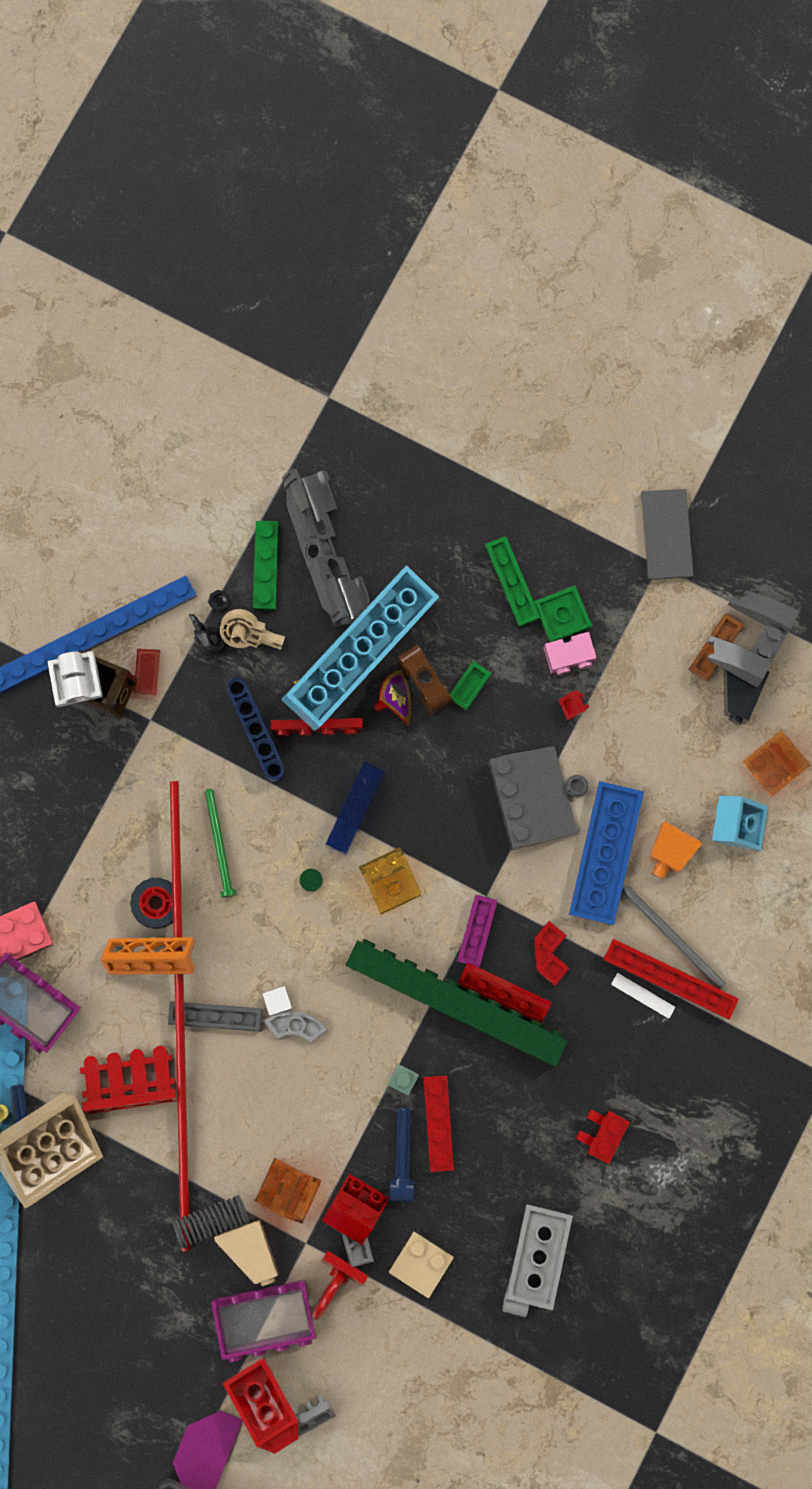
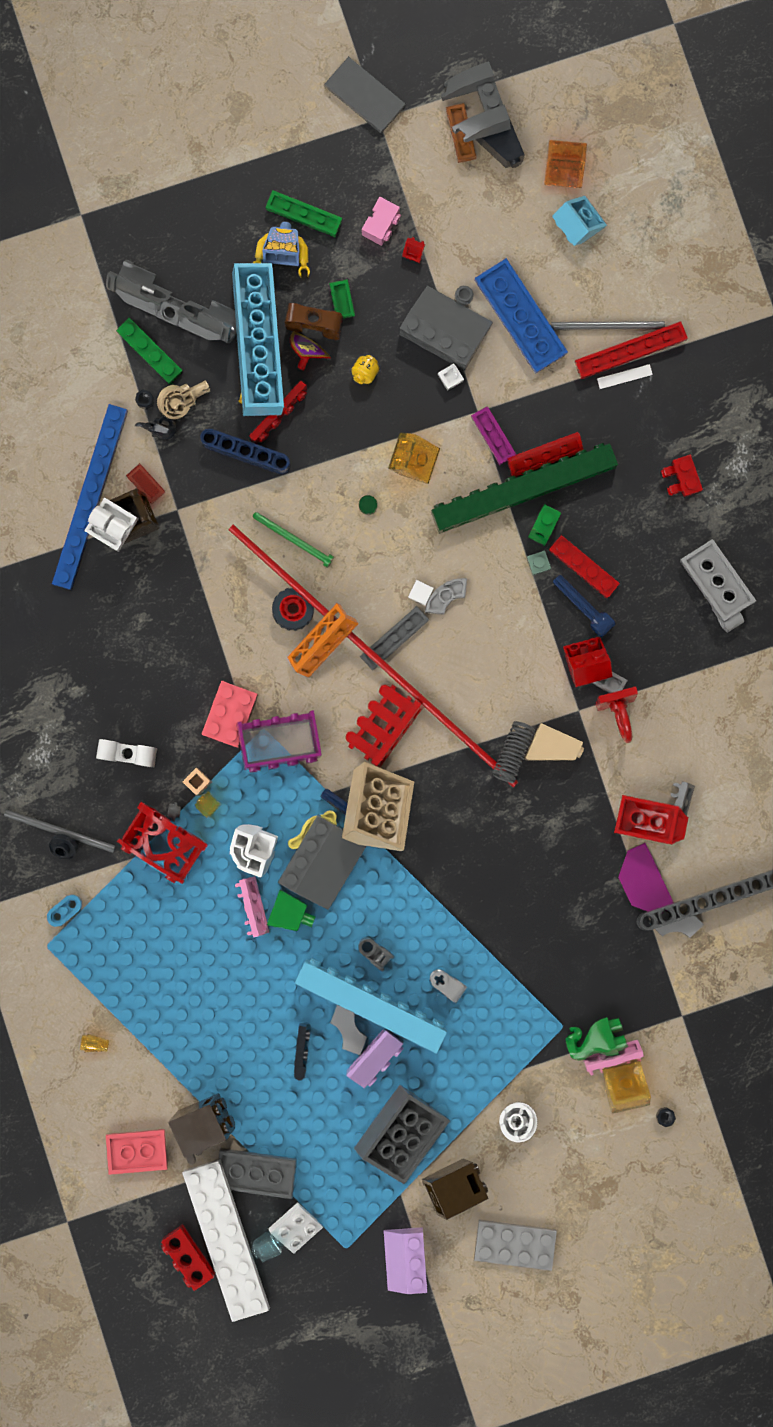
camera: 45 degrees left, 5 degrees up
(263, 1320) = (601, 775): clear window -> none
(288, 1191) = (539, 690): clear orange slope -> none
(355, 809) = (351, 437): clear blue brick -> none
(421, 1264) = (655, 654): tan plate -> none
(426, 764) = (365, 369): none -> yellow head
(442, 1052) = (544, 524): none -> green torso
(464, 592) = (283, 247): none -> torso
(493, 843) = (450, 376): none -> white plate
(546, 962) = (540, 405): red tile -> none
(563, 614) = (353, 202): green plate -> none
(672, 850) = (556, 275): orange torso -> none

